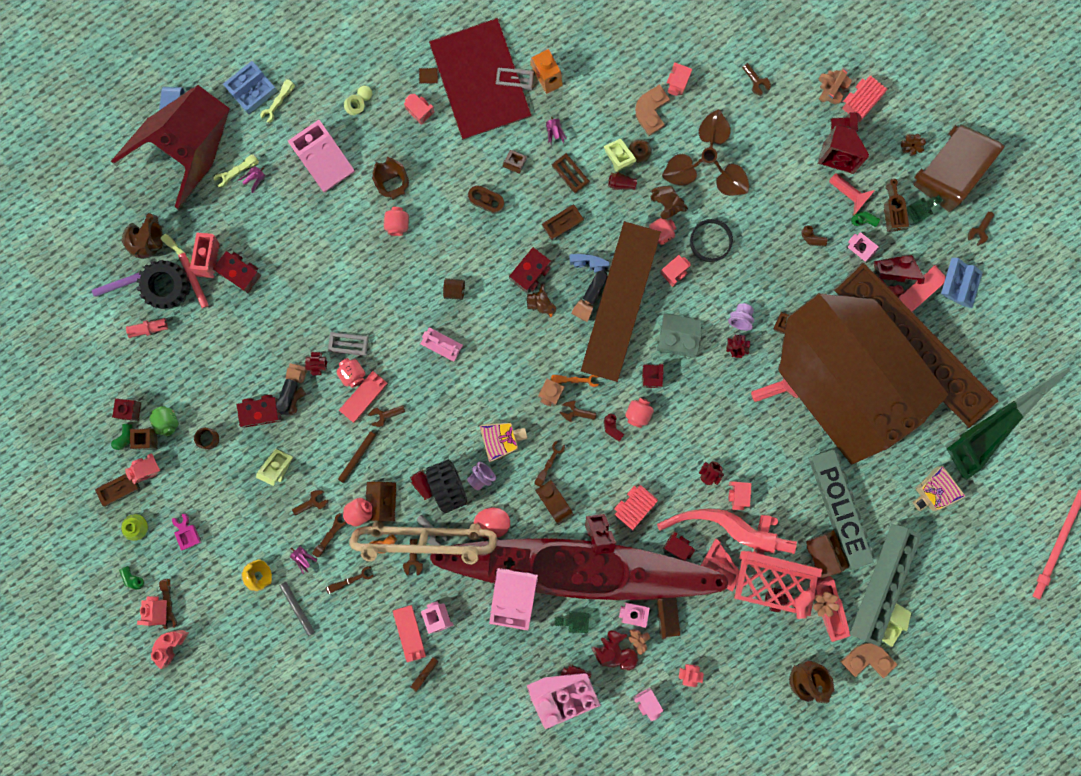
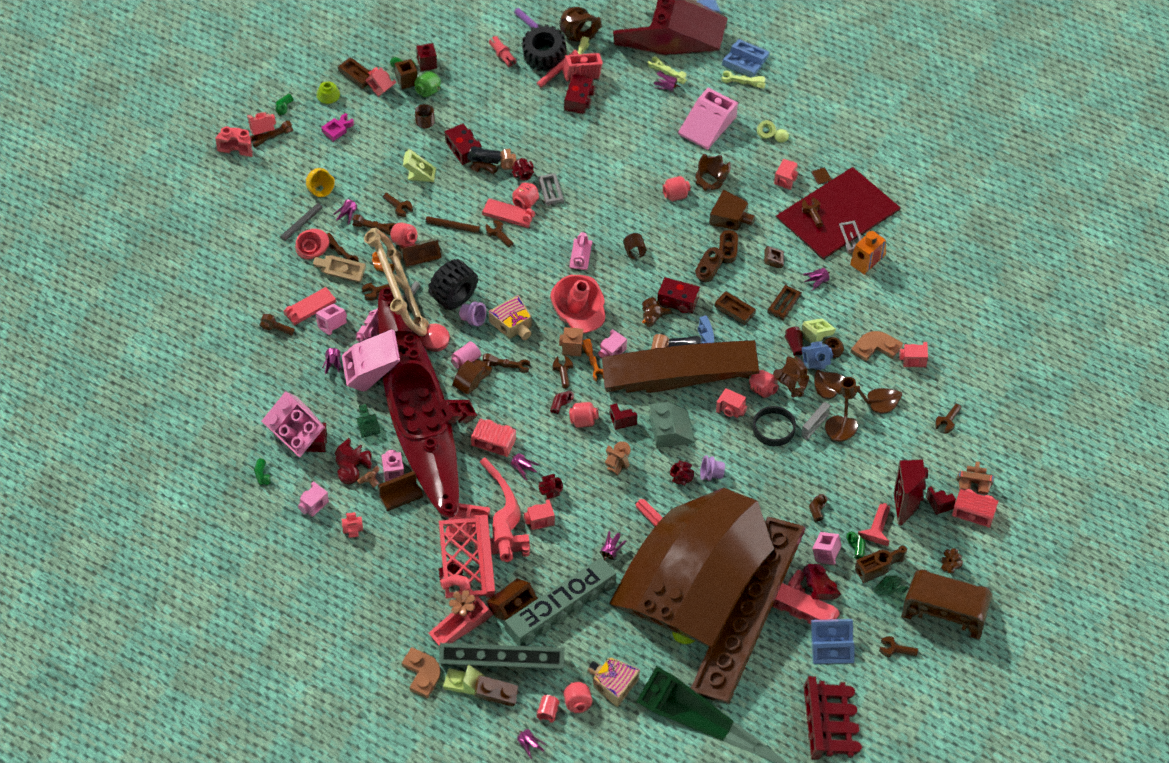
camera: 65 degrees right, 30 degrees down
(328, 606) = (311, 243): none -> coral hat
(374, 588) = (341, 267): none -> tan hinge
(446, 180) = (730, 212): none -> reddish brown torso
(465, 585) = (371, 329): none -> bright pink hinge
(473, 102) = (812, 210): none -> reddish brown bar
(485, 631) = (332, 357): none -> flat silver piece
(503, 226) = (709, 263): none -> reddish brown plate
(512, 370) = (579, 302): none -> coral piece
(530, 501) = (467, 352): none -> bright pink brick
(569, 356) = (613, 345): none -> bright pink brick
(603, 744) = (259, 472): none -> green arm
(650, 169) = (817, 355): none -> medium blue brick
(674, 490) = (520, 461): none -> flat silver piece
(679, 546) = (470, 480): dark red brick -> none
(705, 399) = (617, 457): none -> nougat hips
(721, 200) = (815, 420): none -> light grey tile
(799, 444) = (609, 547): none -> flat silver piece
(807, 689) = (379, 615): reddish brown helmet -> none
(915, 601) = (496, 691): none -> reddish brown plate
(946, 530) = (577, 697): none -> coral head
(948, 561) = (548, 708): none -> coral beam
(973, 592) = (526, 738): none -> flat silver piece
(1031, 327) = (818, 728): none -> dark red fence

